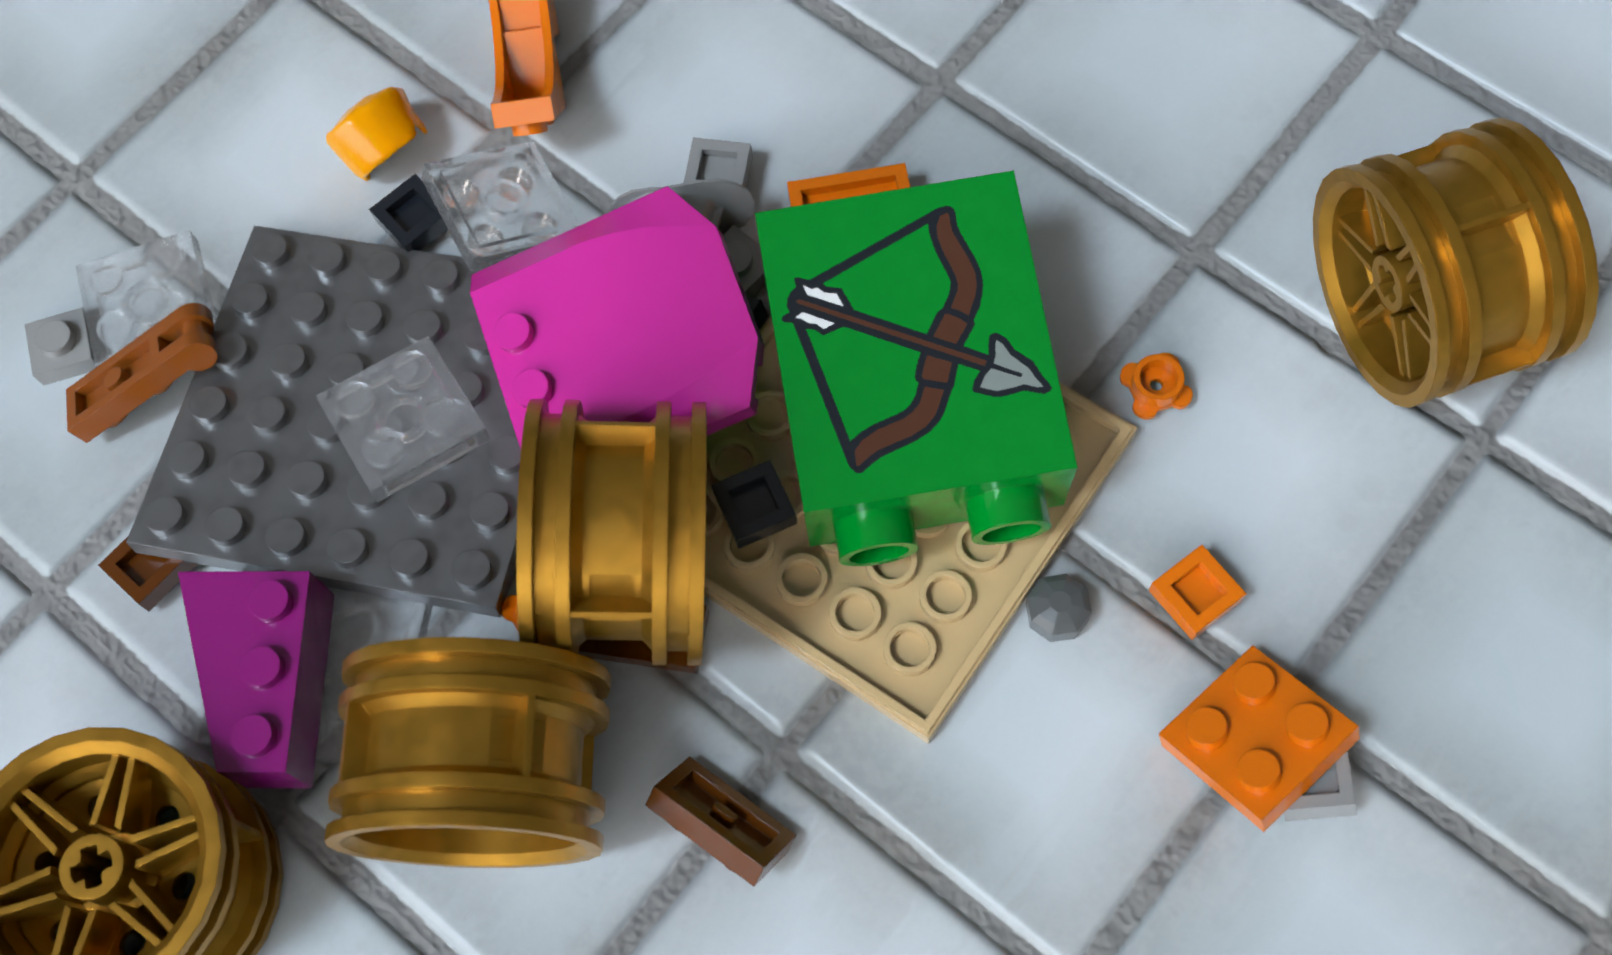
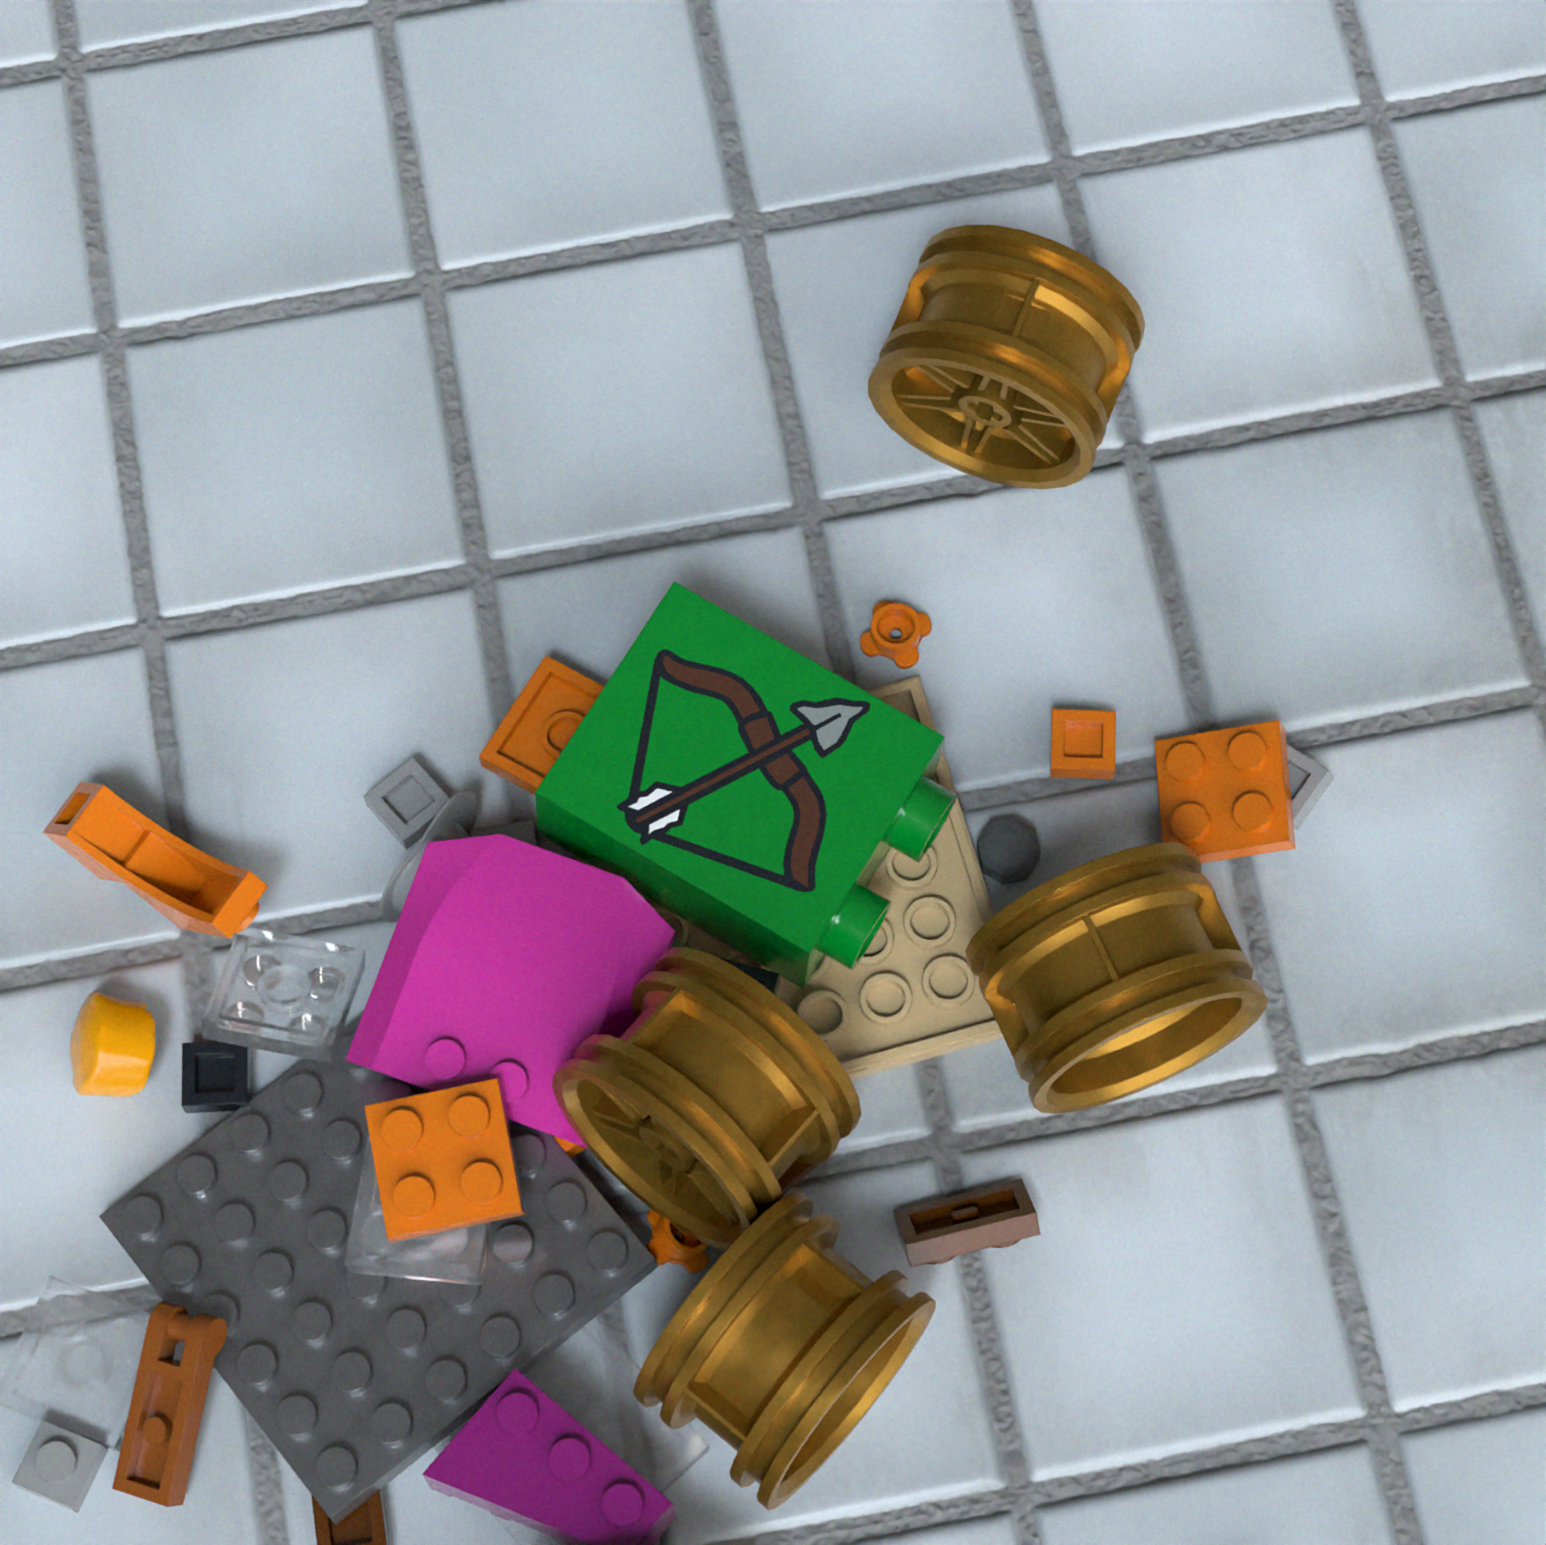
camera: 55 degrees left, 0 degrees up
(432, 393) = (444, 1160): none -> orange plate
(1004, 767) = (1114, 977): none -> pearl gold wheel

